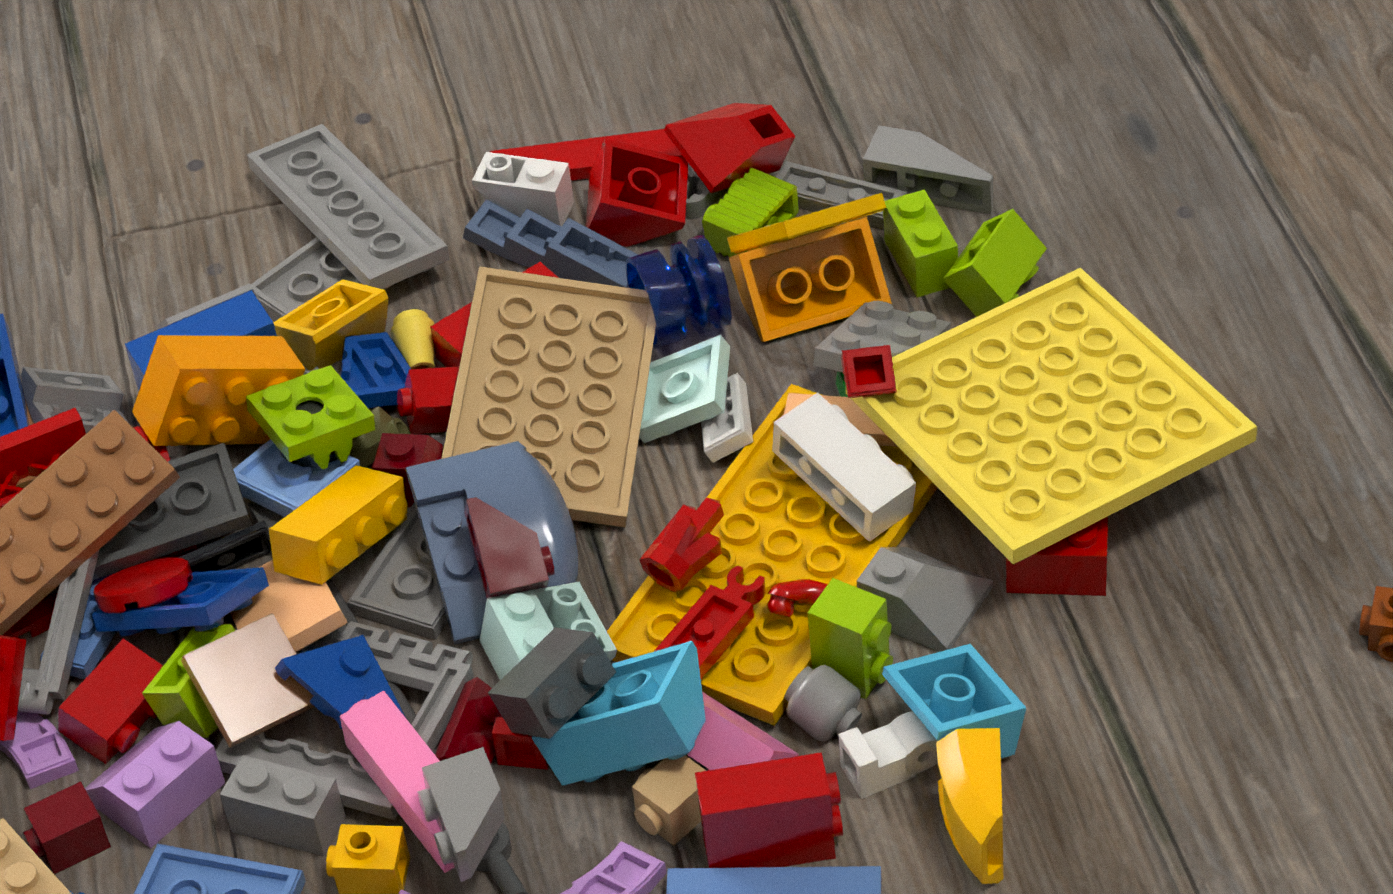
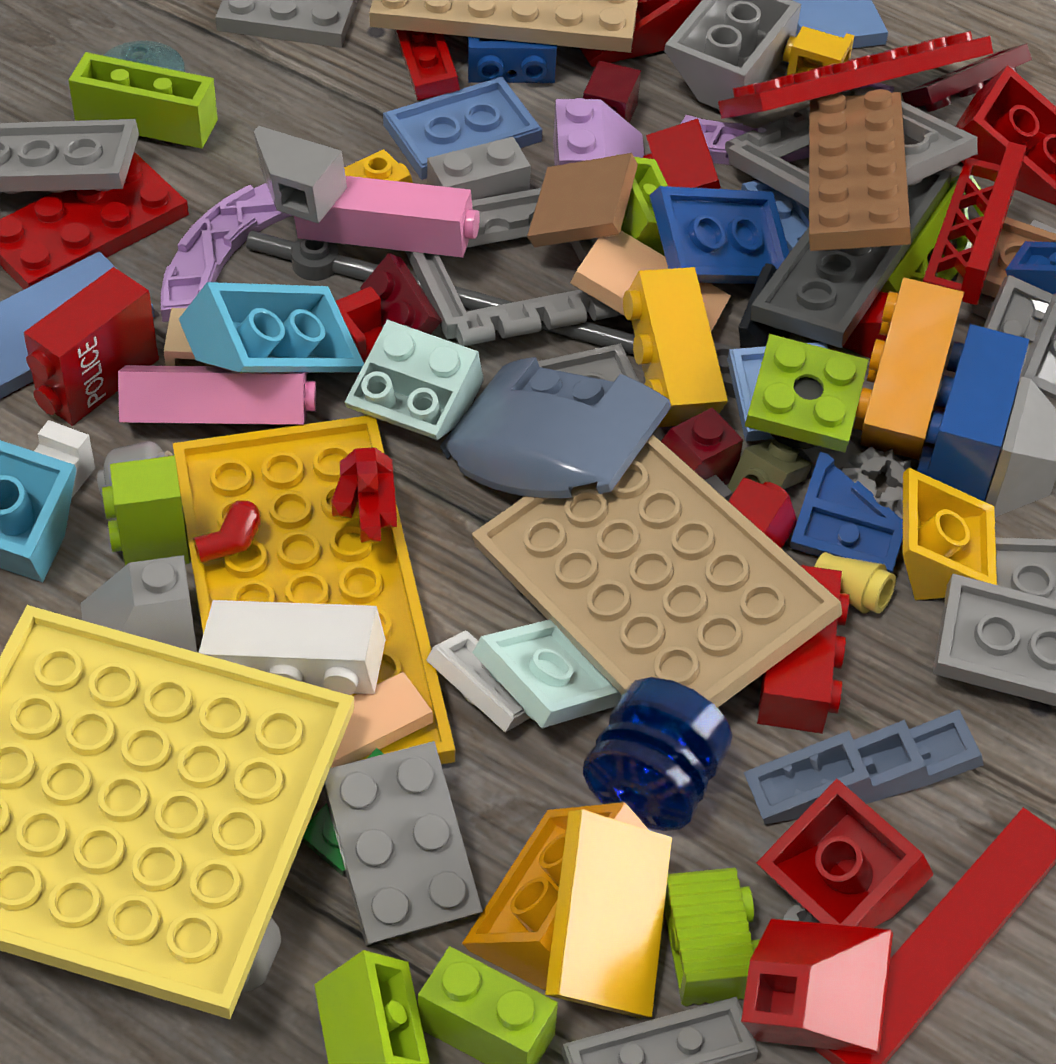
camera: 130 degrees right, 5 degrees up
(143, 583) = (759, 220): red tile -> none
(337, 675) = (518, 251): blue wing -> none
(506, 551) = (502, 382): dark red slope -> none
(526, 184) = (963, 798): white slope -> none
(552, 682) = (340, 305): dark grey brick -> none
(717, 618) = (281, 456): red plate -> none
(868, 371) = (333, 707): red slope -> none

